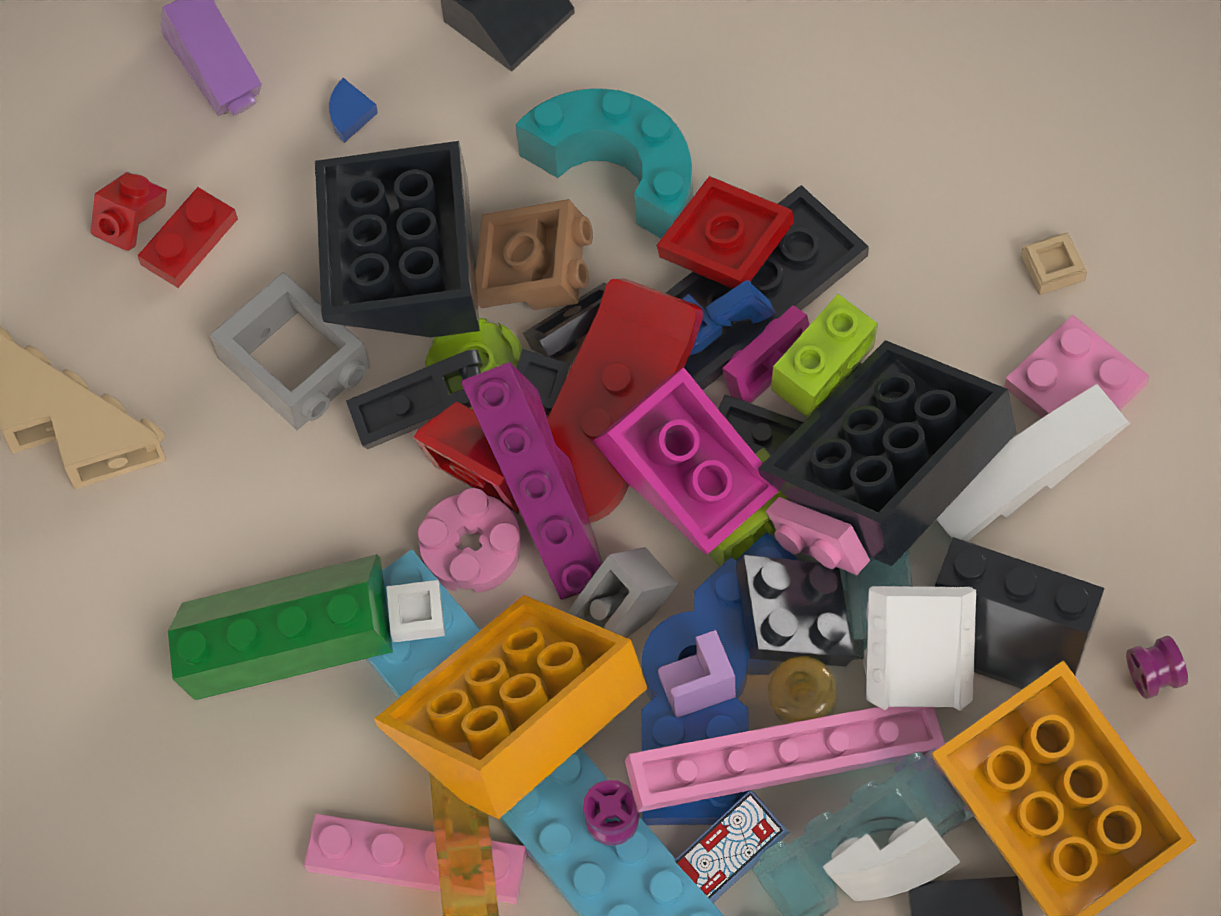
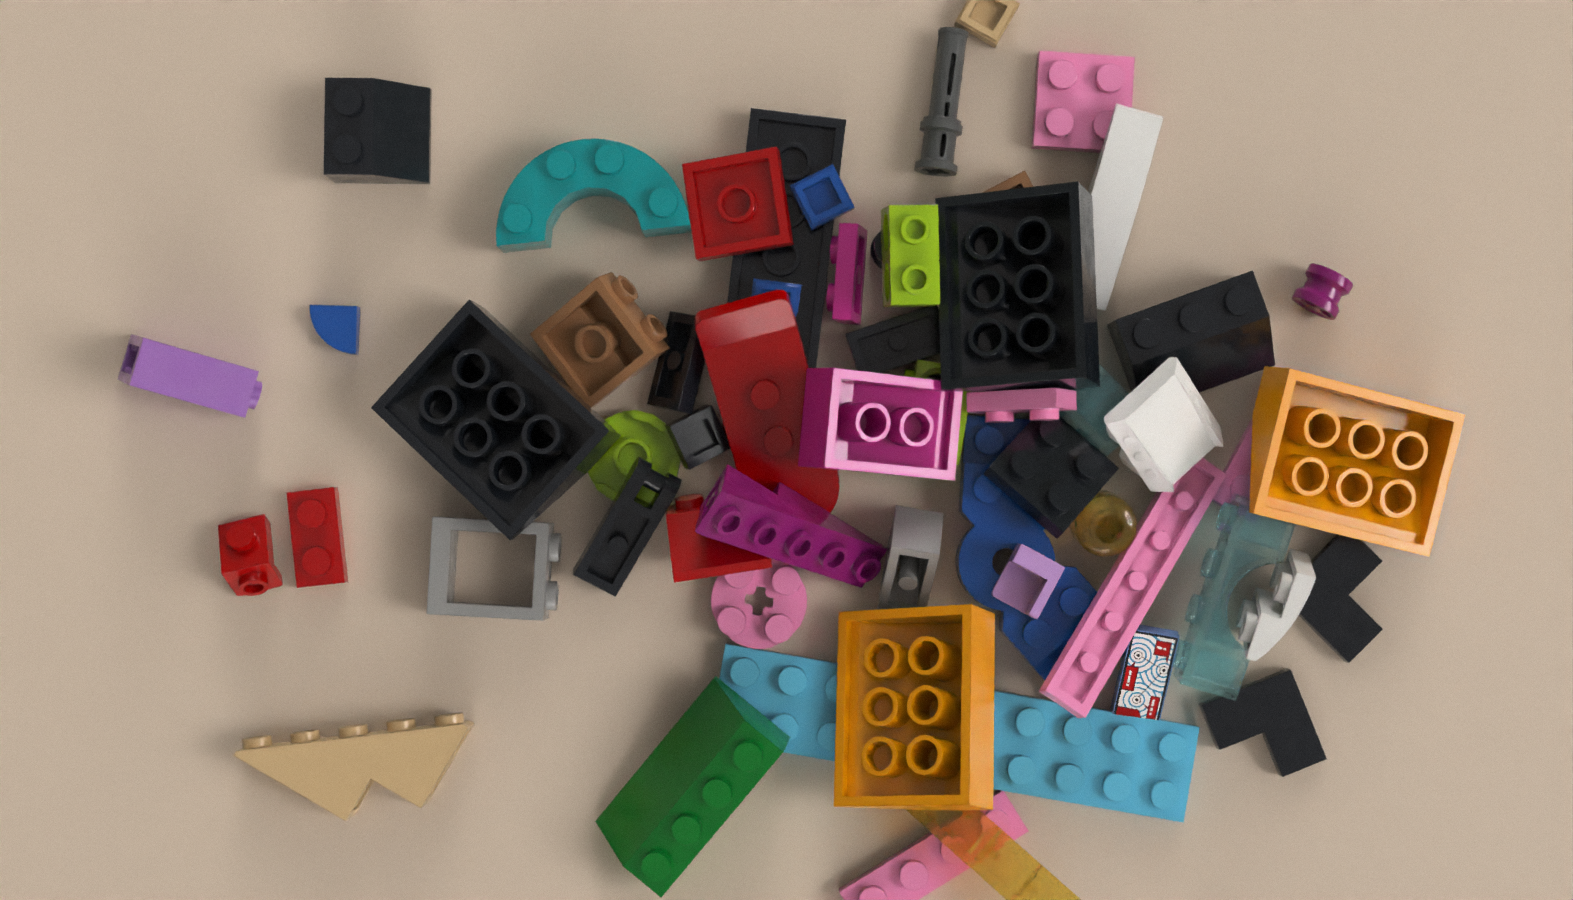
camera: 50 degrees left, 25 degrees up
(415, 611) = (782, 697): white plate -> none
(606, 801) = (1061, 735): magenta wheel -> none
(741, 304) = (807, 247): blue tile -> none
(797, 281) = (822, 197): none -> blue tile
(943, 308) = (941, 124): none -> dark grey pin

